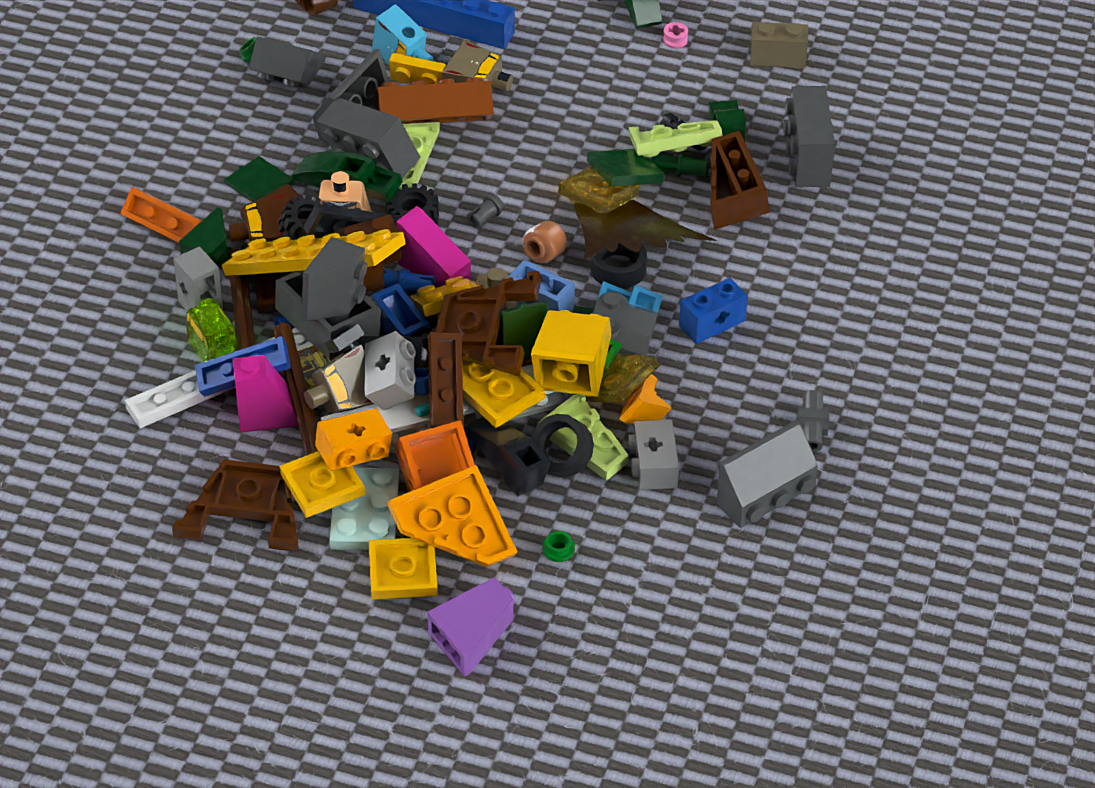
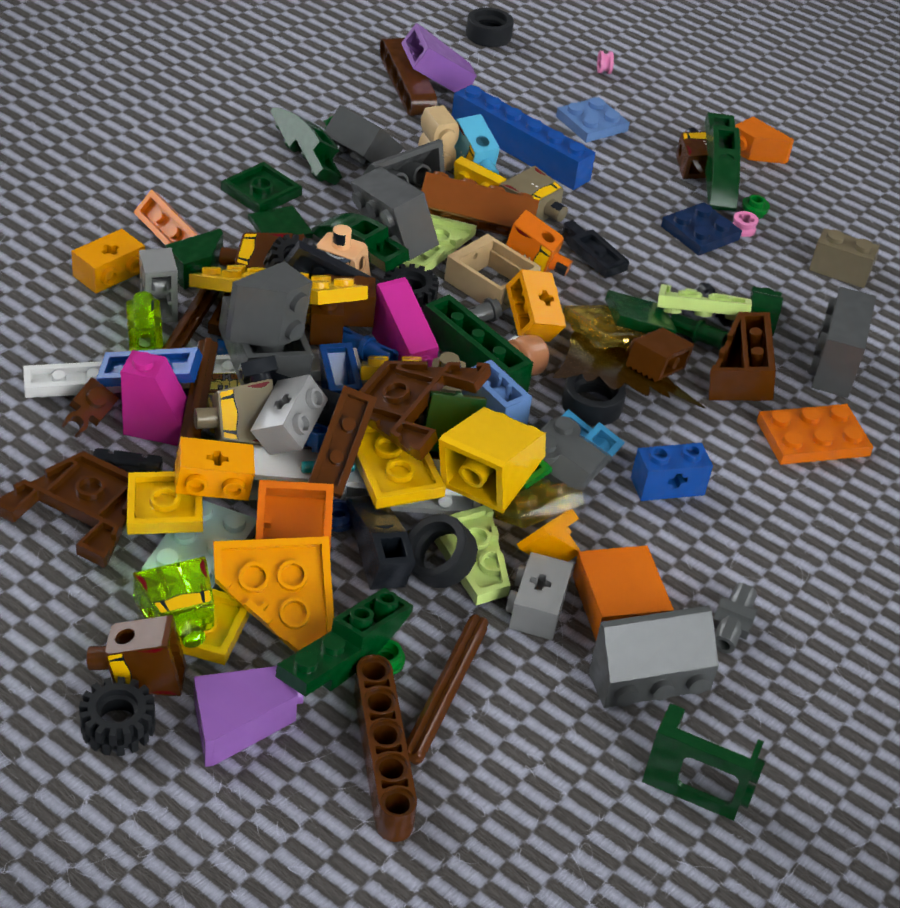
camera: 15 degrees right, 5 degrees down
(132, 272) = (107, 260): none -> light orange brick
(204, 416) = (90, 405): none -> reddish brown plate
(219, 146) = (261, 188): none -> dark green tile
(242, 80) = (312, 143): none -> slope
(266, 454) = (130, 460): none -> black axle
(361, 35) = (439, 124): none -> tan brick
(376, 610) = (143, 651): none -> reddish brown torso
(381, 557) = (179, 591): none -> clear neon green torso
(381, 677) = (117, 734): none -> black tyre
(482, 151) = (486, 251): none -> tan window
(498, 246) = (473, 340): none -> dark green brick
(505, 132) = (538, 243): none -> orange torso
(530, 545) = (353, 635): none -> dark green slope
(533, 190) = (535, 304): none -> light orange brick
(554, 111) = (594, 250): none -> black hinge
(593, 614) = (385, 749): none -> reddish brown beam
(615, 554) = (445, 688): none -> reddish brown axle
(638, 53) = (701, 228): none -> dark blue plate
(658, 202) = (659, 354): none -> reddish brown brick
(678, 12) = (756, 204): none -> green plate
(714, 427) = (619, 584): none -> orange brick
(811, 538) = (675, 745): none -> dark green window
(814, 232) = (814, 434): none -> orange plate

